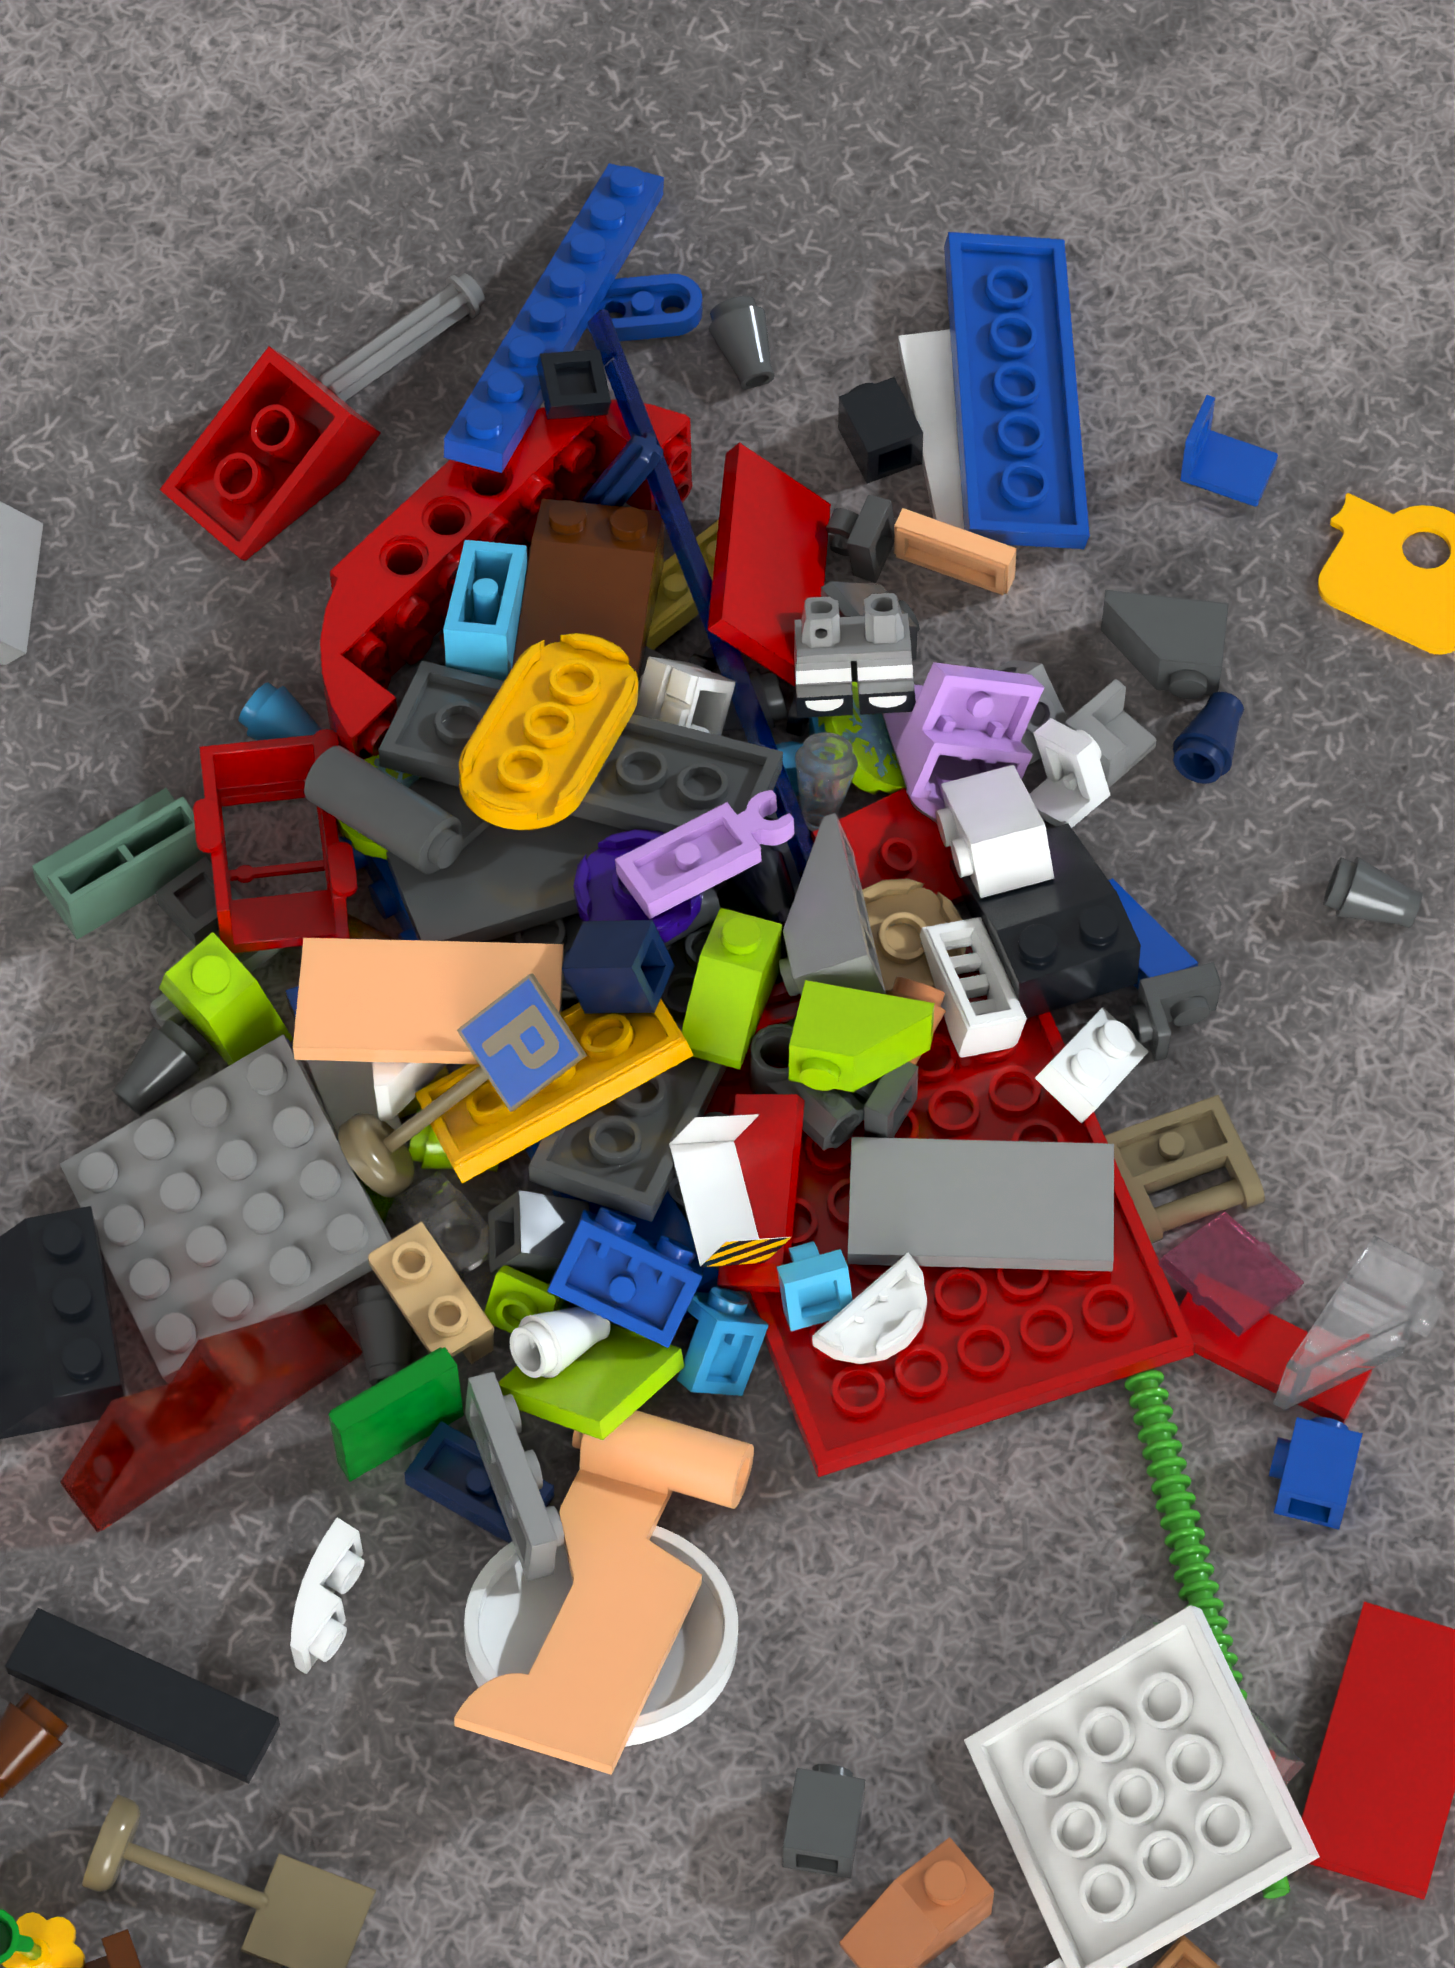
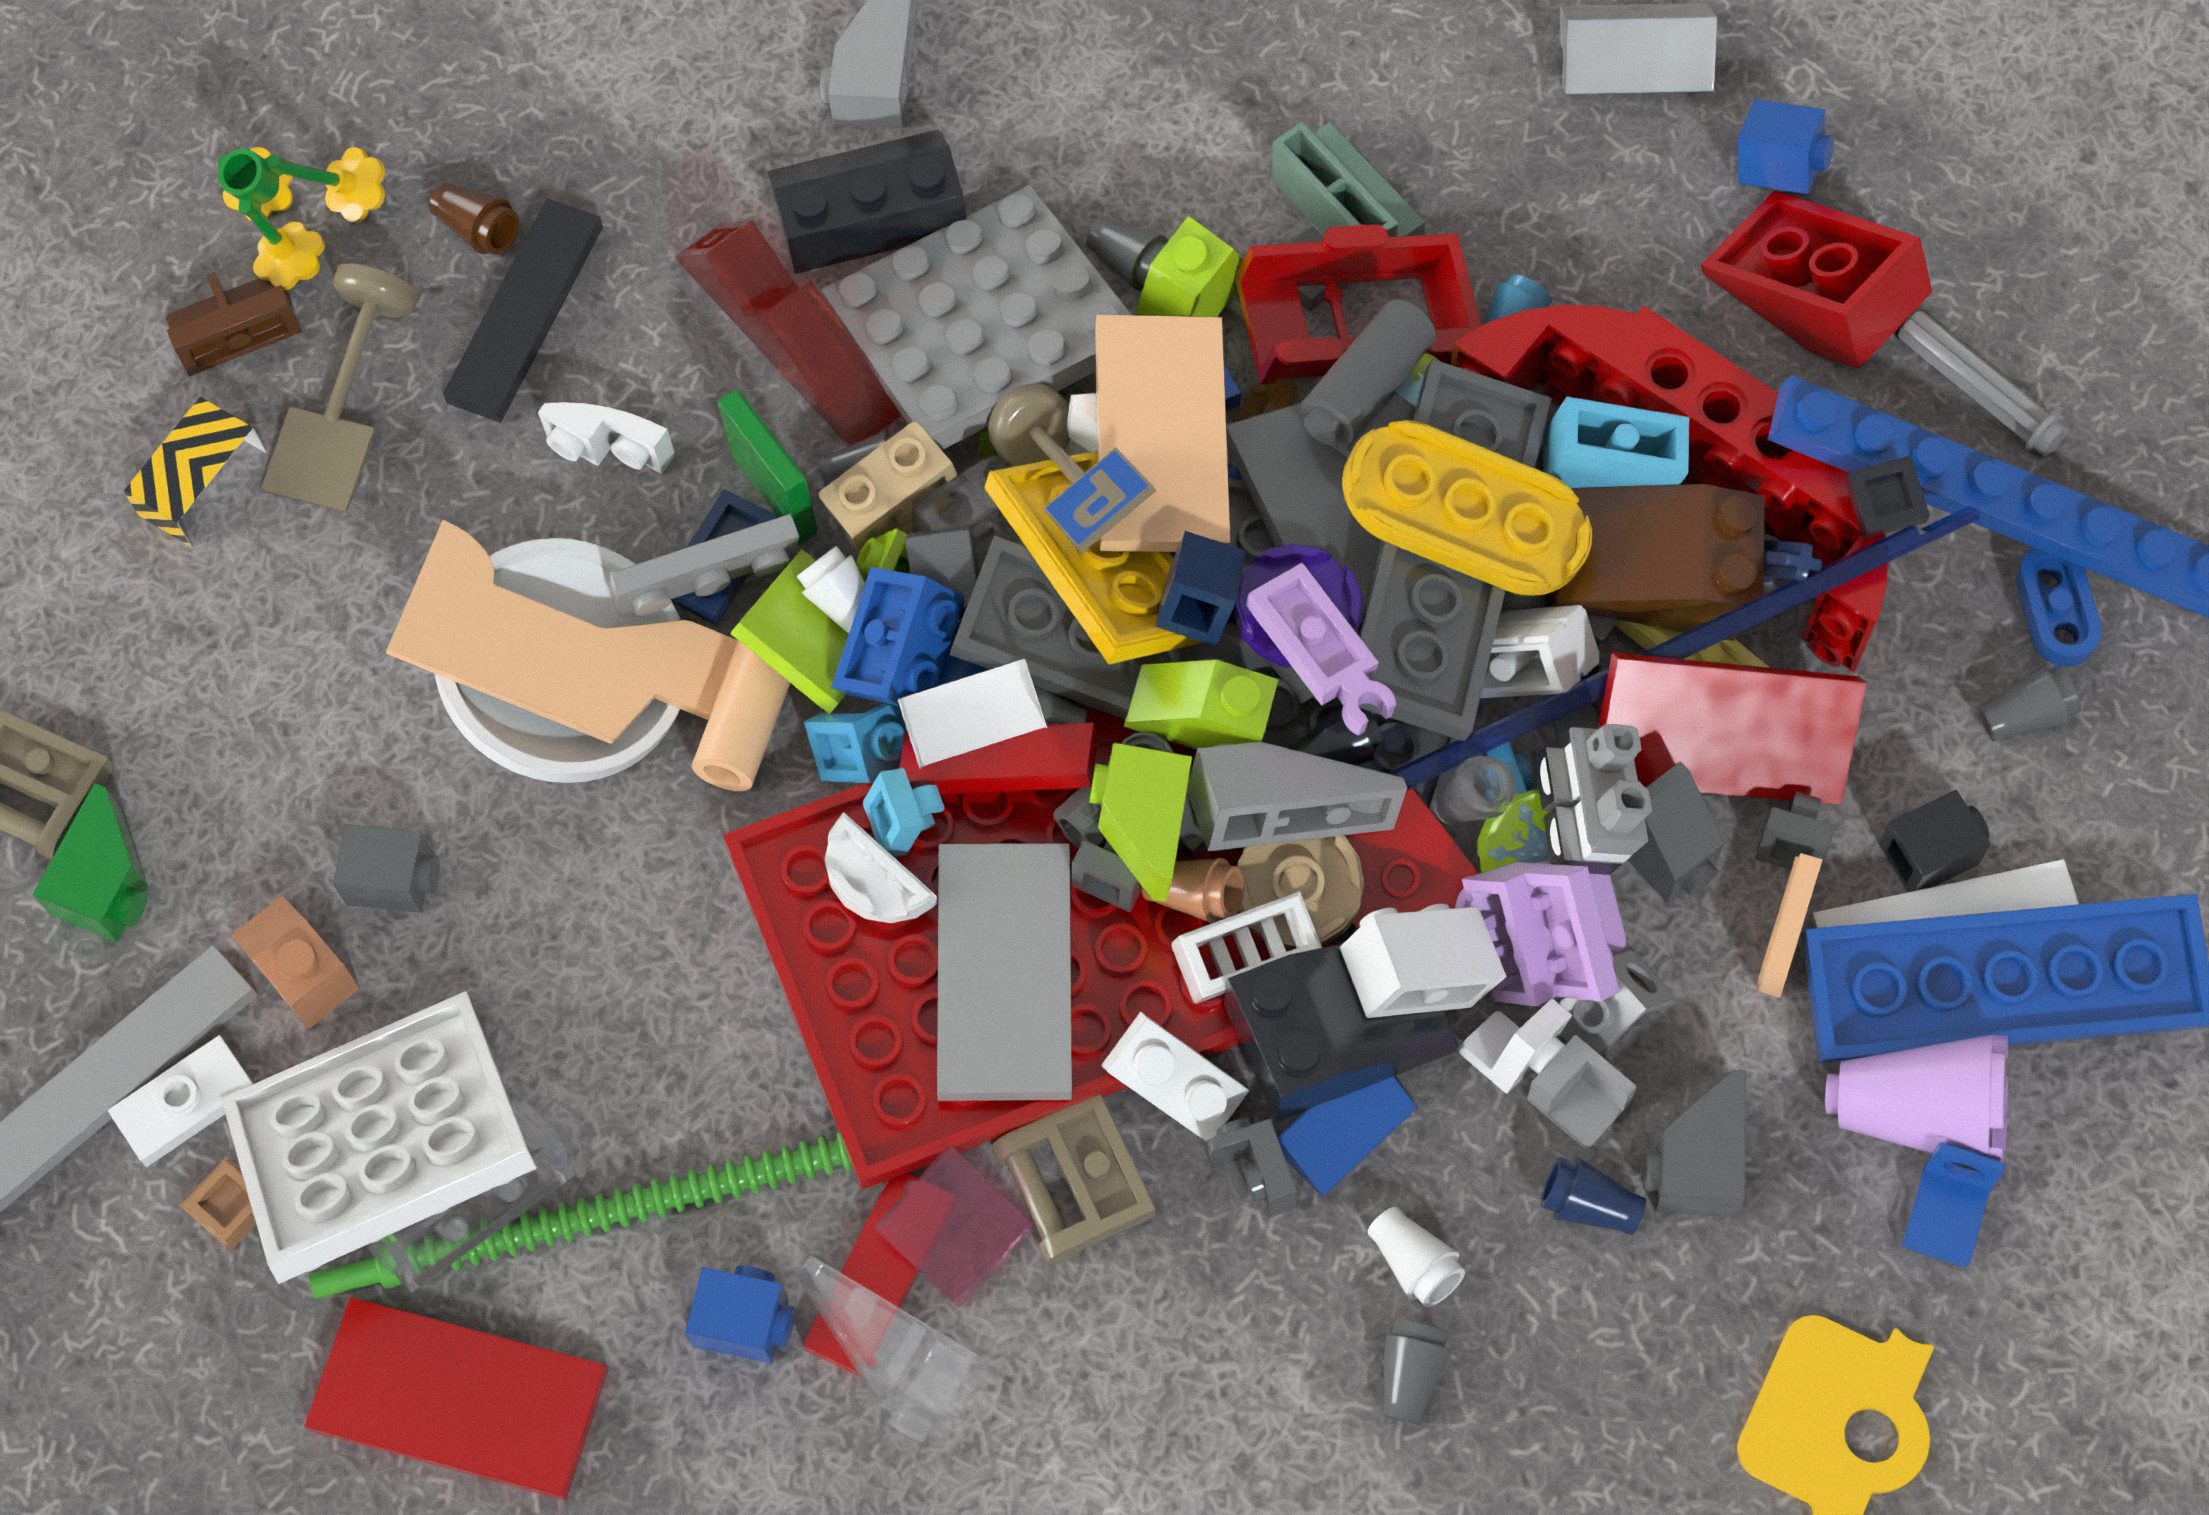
camera: 90 degrees right, 5 degrees up
(126, 464) = (1783, 146): none -> blue brick
(1132, 451) = (1928, 1096): none -> lavender cone
(1264, 883) = (1418, 1259): none -> white cone

